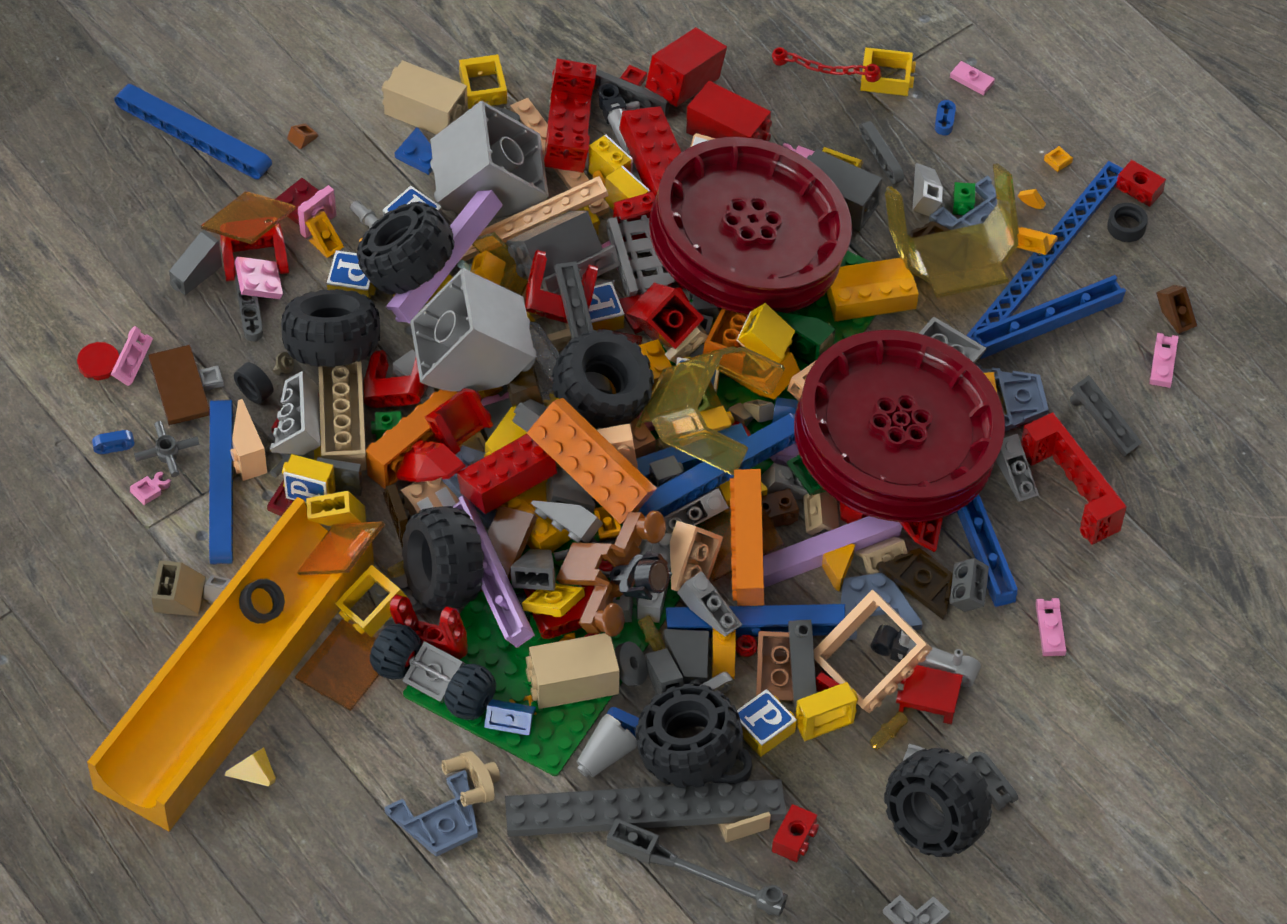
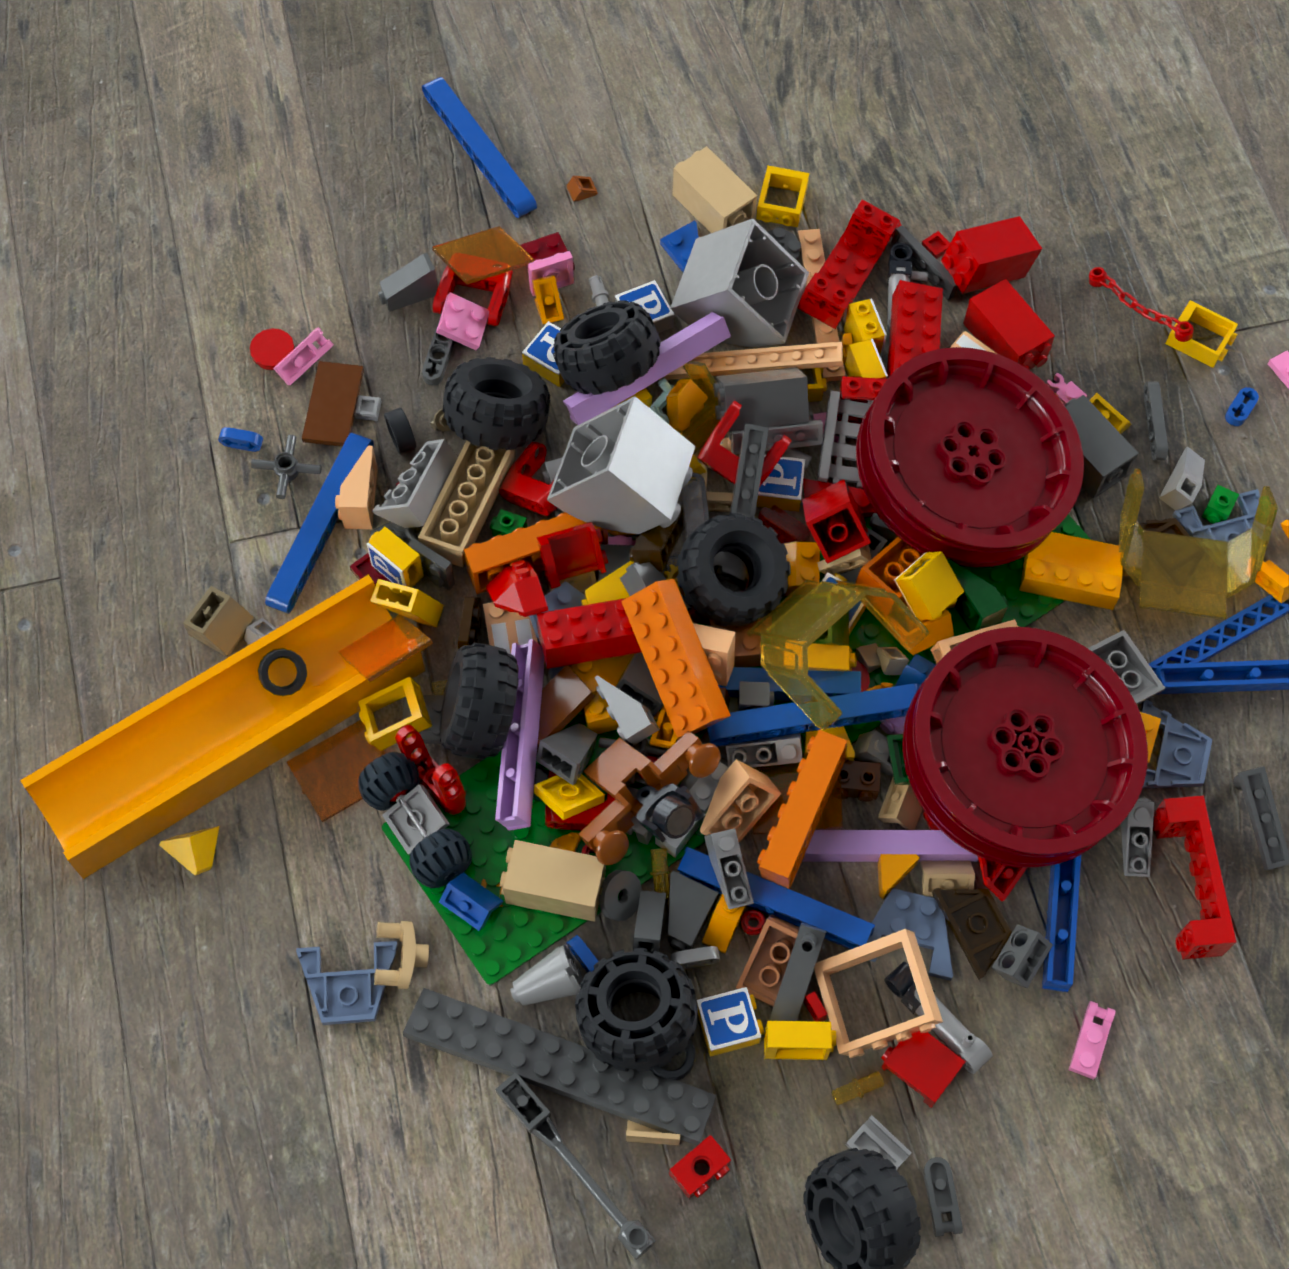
camera: 25 degrees right, 10 degrees up
(148, 489) = (247, 502): bright pink plate -> none

